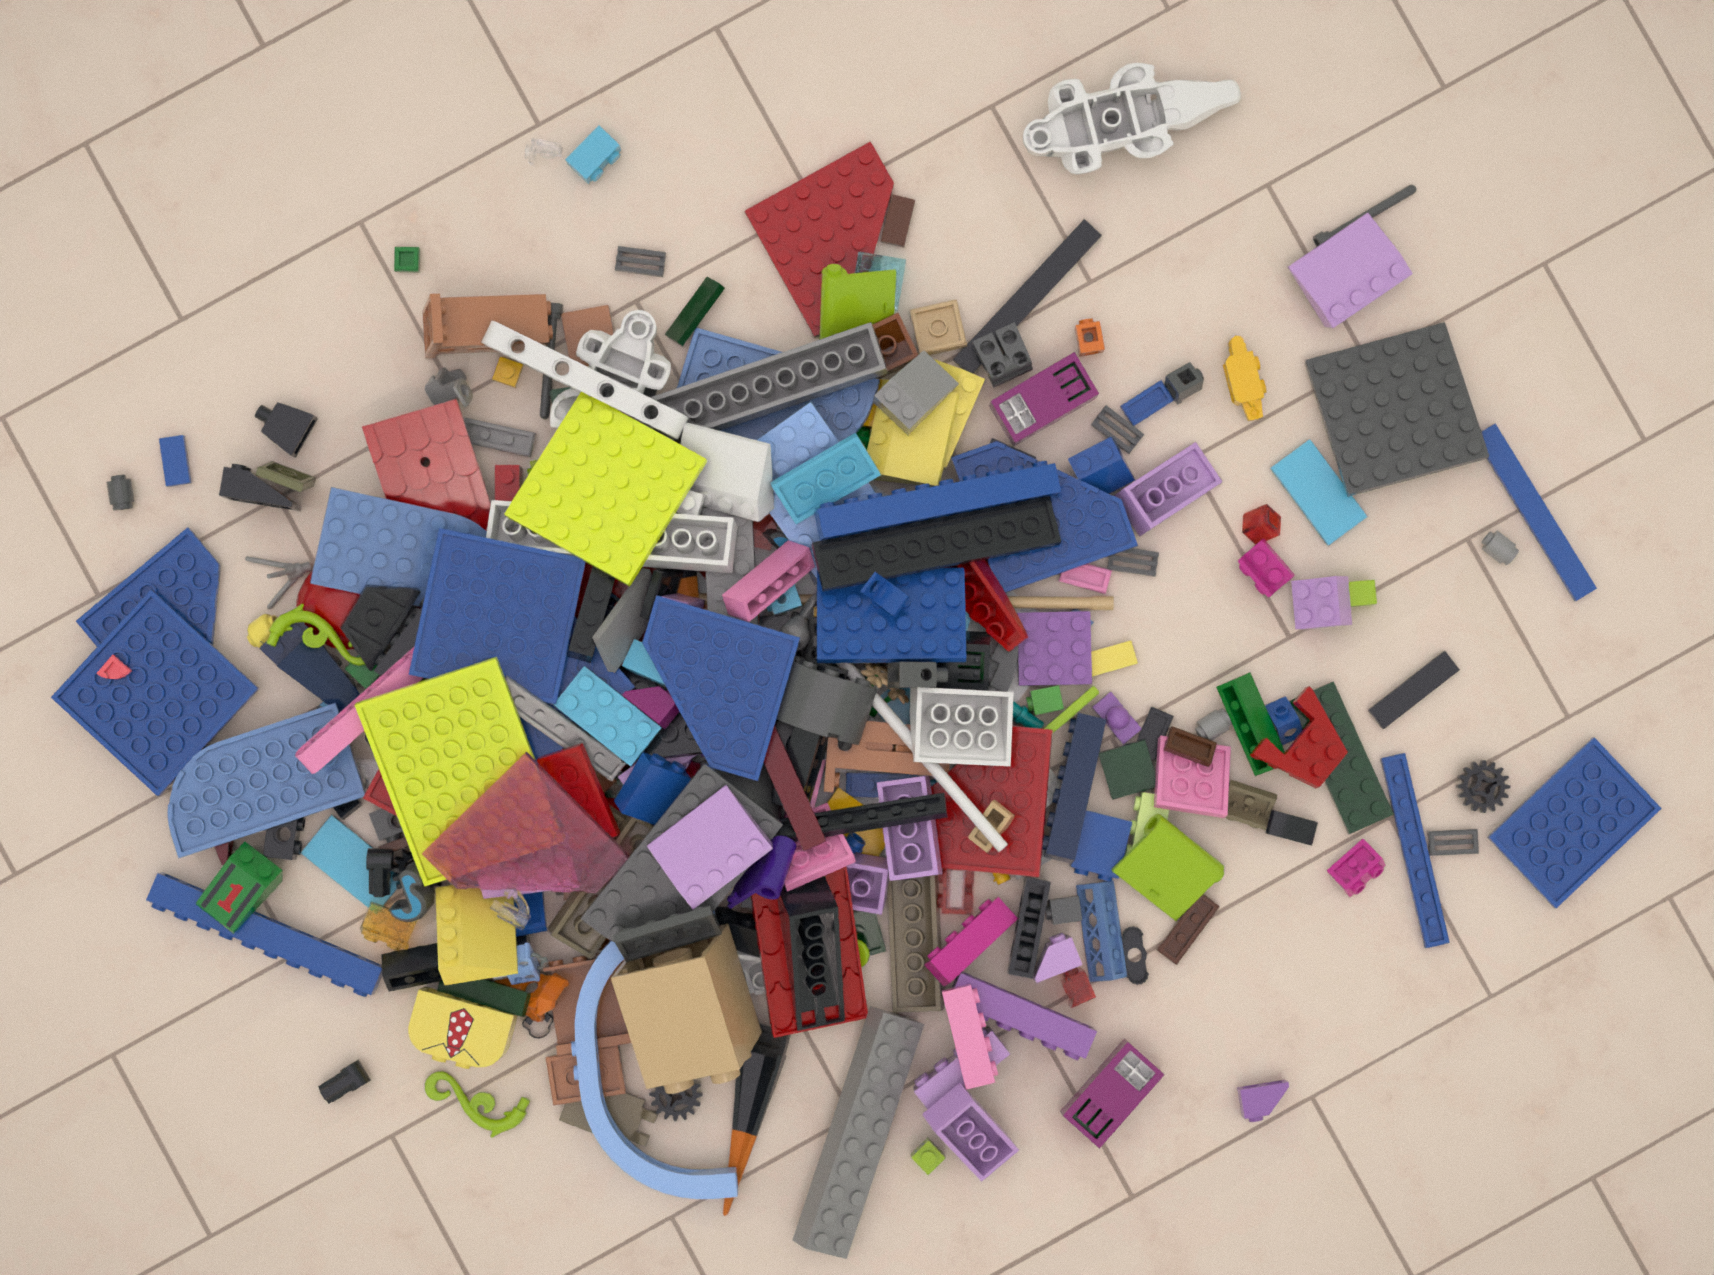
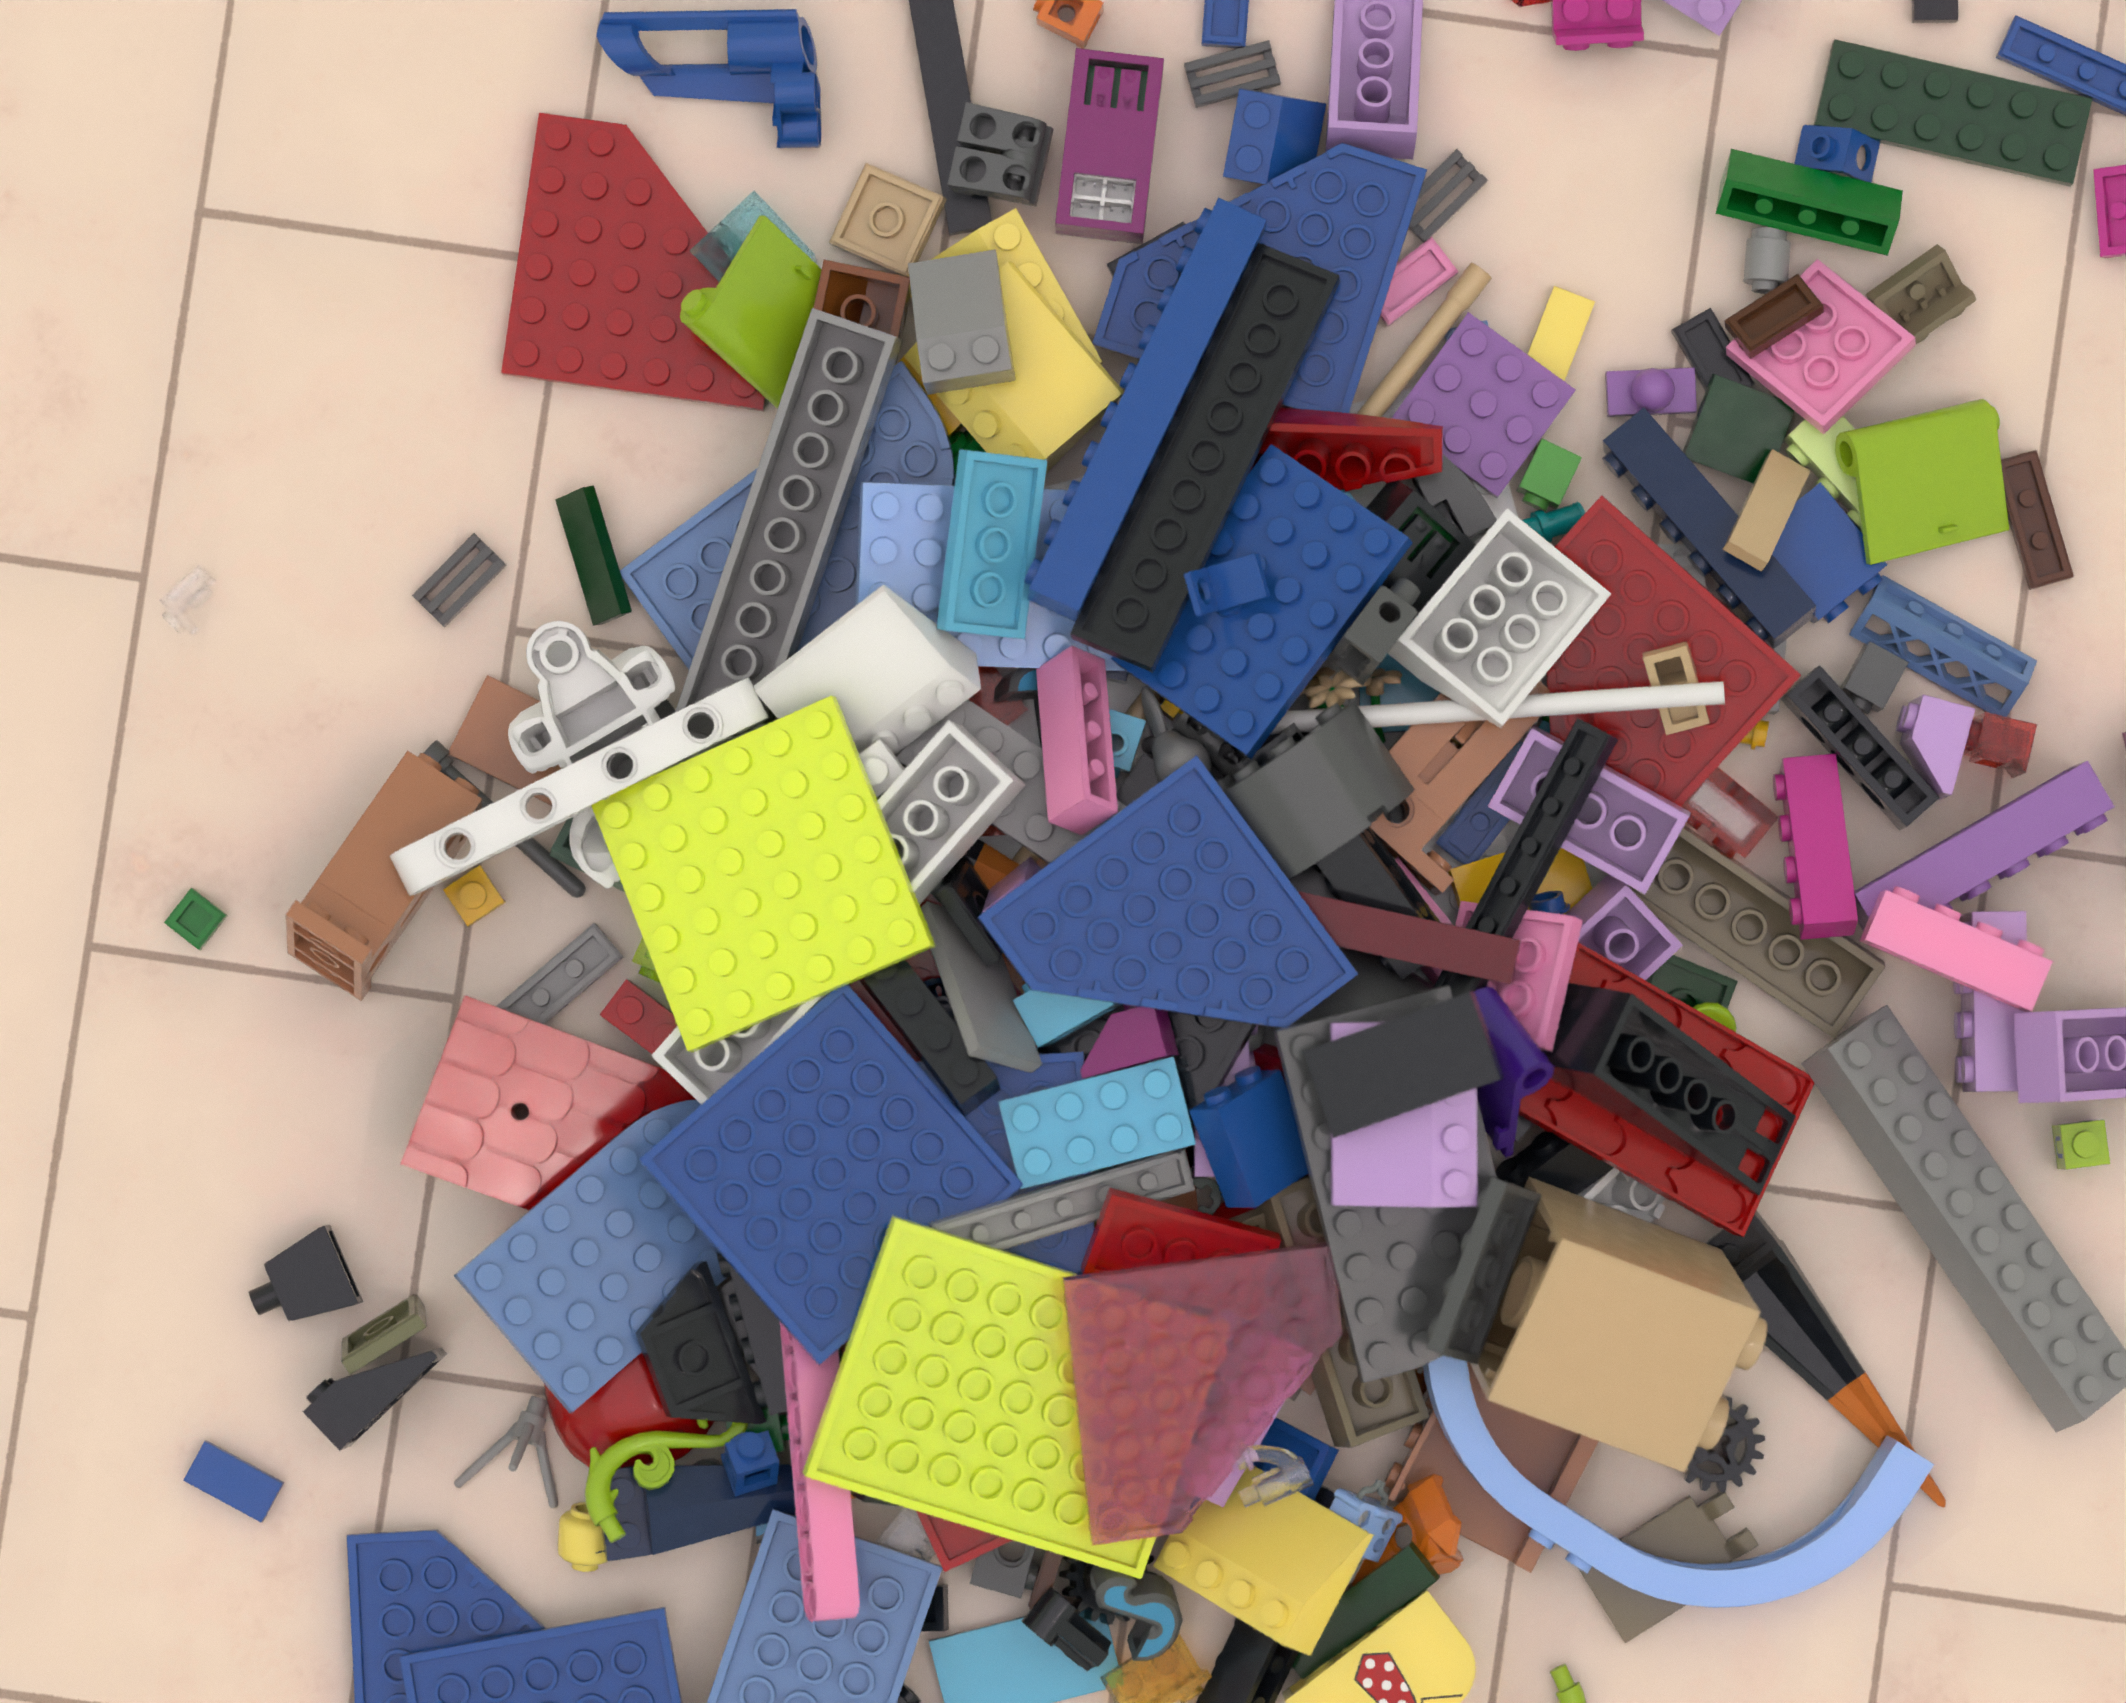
camera: 45 degrees left, 0 degrees up
(120, 492) = (220, 1596): dark grey brick -> none
(350, 674) = (747, 1455): none -> blue brick
(449, 386) = (433, 998): light grey piece -> none
(529, 1021) = (1448, 1577): black piece -> none
(566, 1089) = (1590, 1595): nougat tile -> none
(594, 155) = (252, 529): medium azure brick -> none
(730, 830) = (1403, 1064): none -> black tile
(898, 220) = (685, 161): reddish brown tile -> none
(969, 222) = (768, 62): none -> blue panel
(1072, 709) = (1590, 445): lime tile -> none
(1101, 807) = (1766, 510): none -> tan tile
(1136, 971) = (2039, 640): black piece -> none
(1291, 827) = (2001, 260): black slope -> none
(1315, 749) = (1916, 143): red wing -> none

